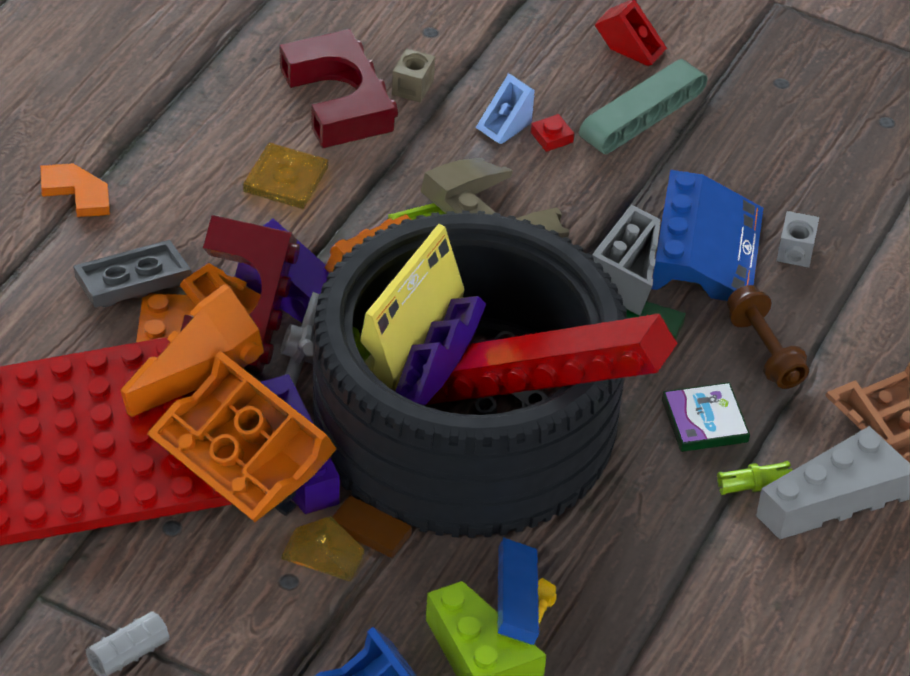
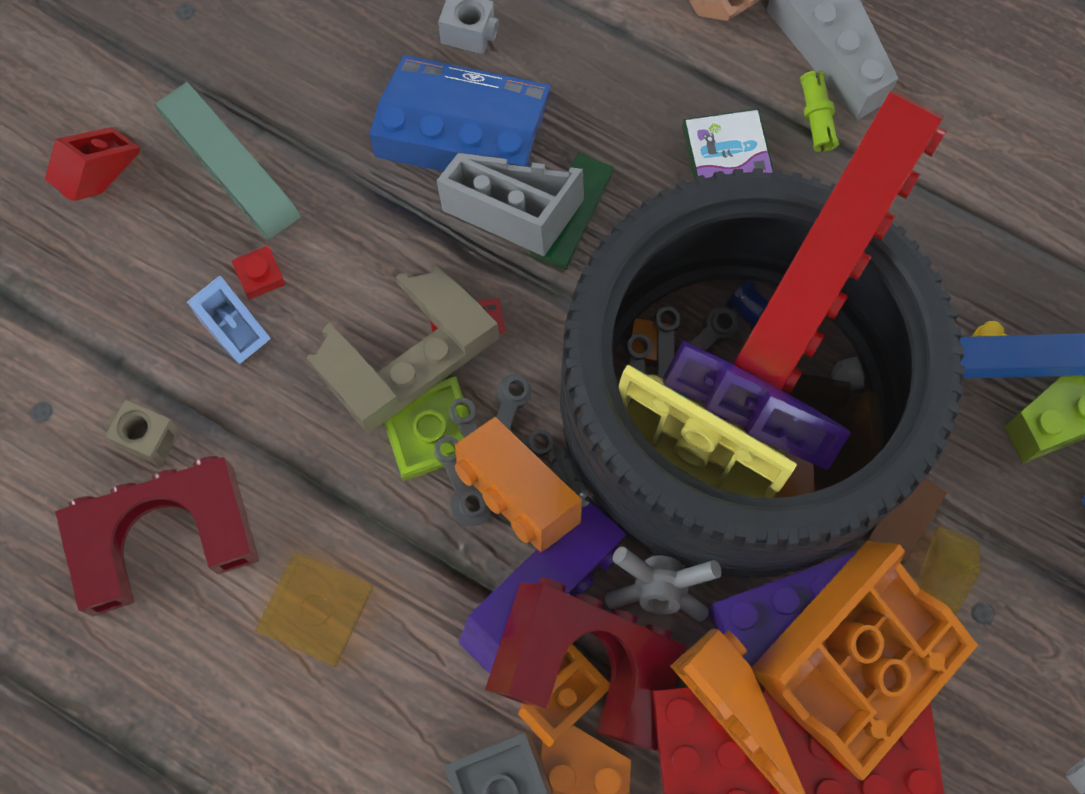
camera: 85 degrees left, 25 degrees up
(786, 365) = (670, 57): reddish brown piece -> none

